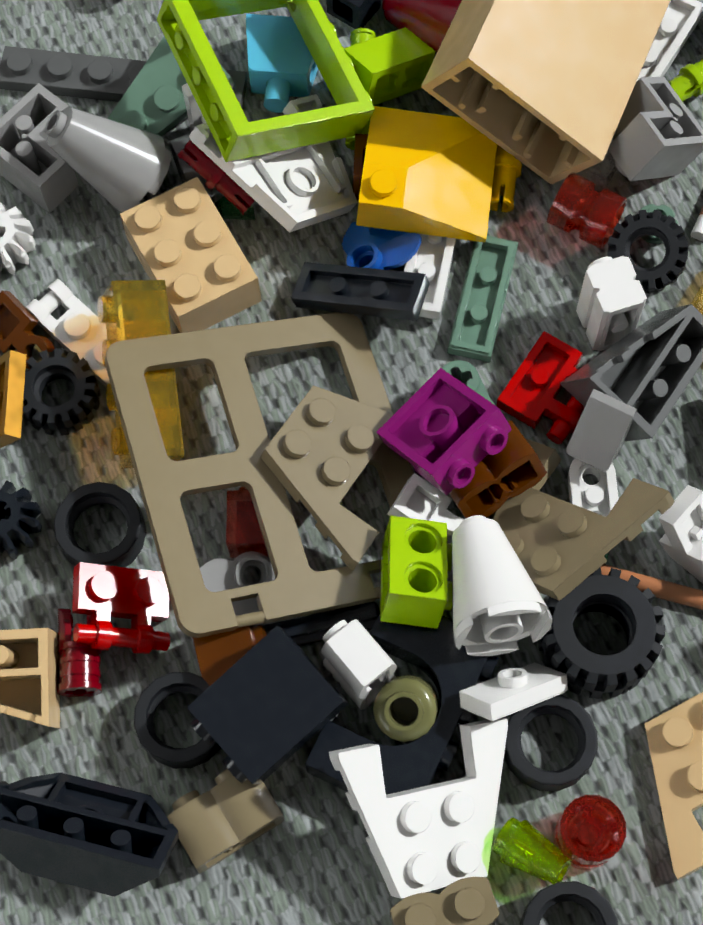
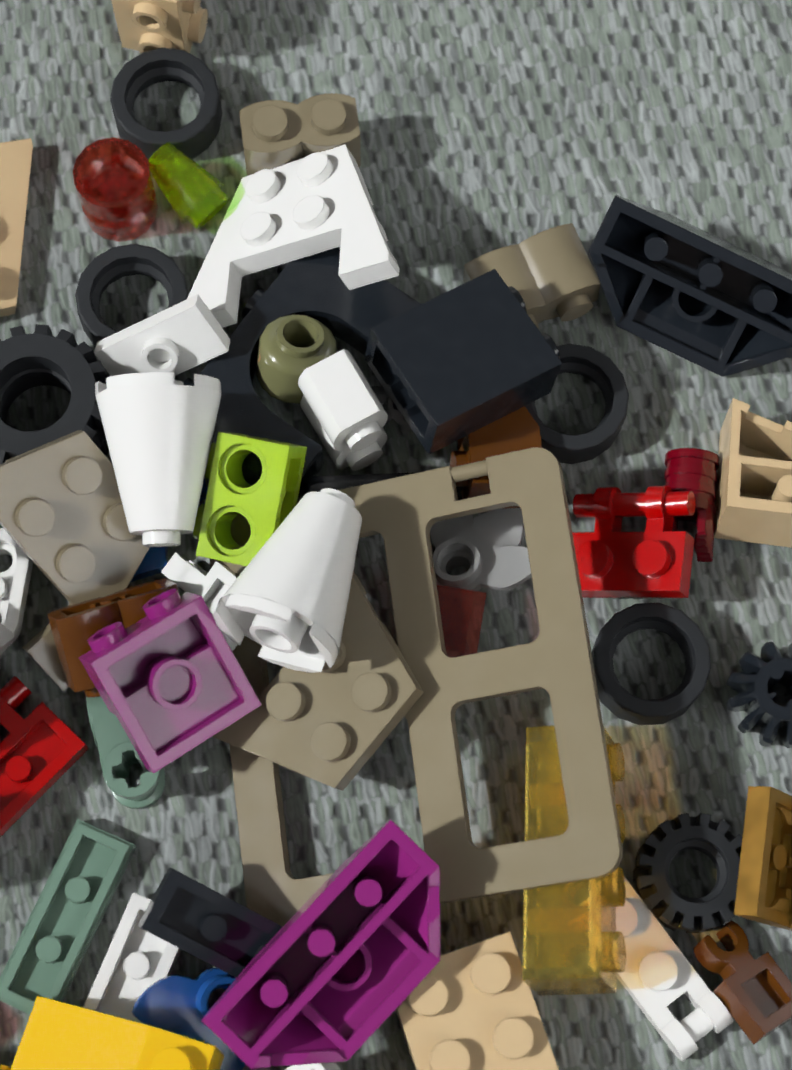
camera: 175 degrees left, 5 degrees up
(294, 269) = (338, 960): none -> magenta wedge
(362, 498) = (298, 585): none -> white cone

